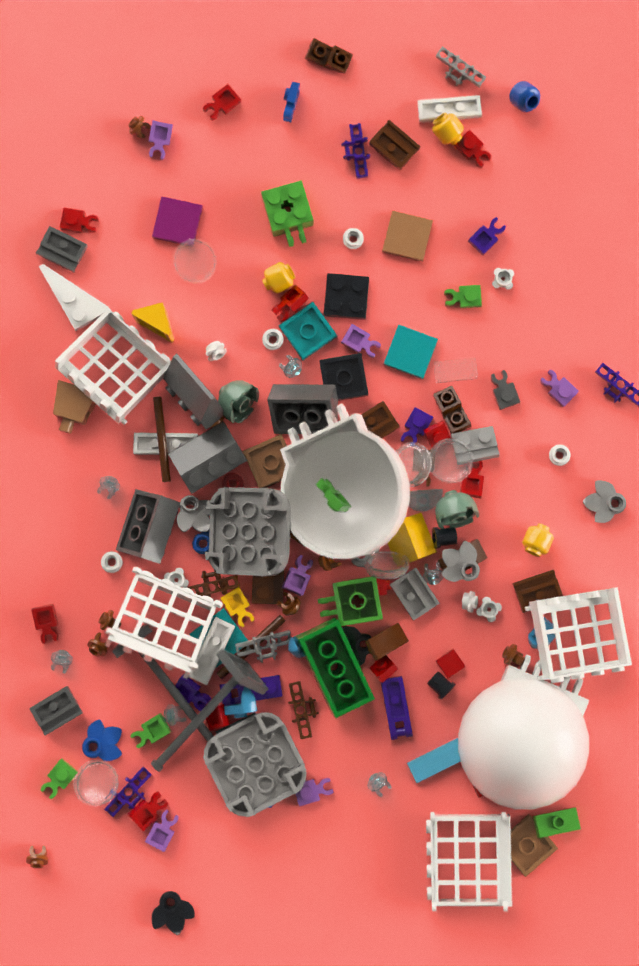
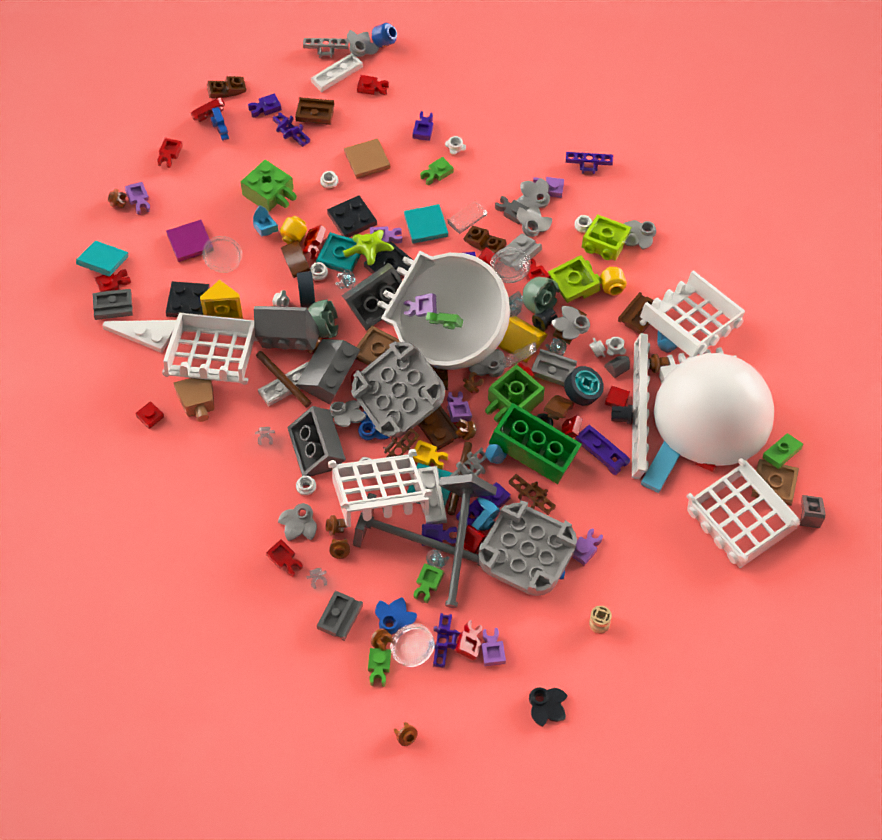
camera: 35 degrees left, 25 degrees down
(23, 393) = (149, 415): none -> red plate
(73, 756) = (381, 638): none -> dark orange plate
(79, 597) = (298, 524): none -> light grey plate
(82, 190) = (102, 258): none -> teal tile
(133, 288) = (185, 298): none -> black plate
(243, 357) = (306, 289): none -> black wheel
(257, 251) = (263, 222): none -> dark azure plate
(259, 312) = (295, 258): none -> reddish brown slope
(271, 870) = (597, 623): none -> tan wheel
(282, 75) = (202, 112): none -> red plate
(325, 464) = (422, 305): none -> medium lavender plate
(334, 348) = (369, 246): none -> lime animal
(355, 105) = (267, 105): none -> dark purple plate
(377, 781) = (629, 508): clear light blue plate -> none
(421, 625) = (586, 393): none -> black wheel
(448, 128) = (345, 80): yellow head -> none
(459, 693) = (640, 412): none -> white plate
(476, 629) = (618, 366): none -> dark grey slope
(498, 89) = (361, 44): none -> light grey plate
(502, 514) = (576, 279): none -> lime plate
(516, 419) = (533, 219): none -> light grey plate
(535, 386) = (532, 191): none -> light grey plate
(535, 899) = (812, 511): none -> slope
(567, 487) = (605, 237): none -> lime plate

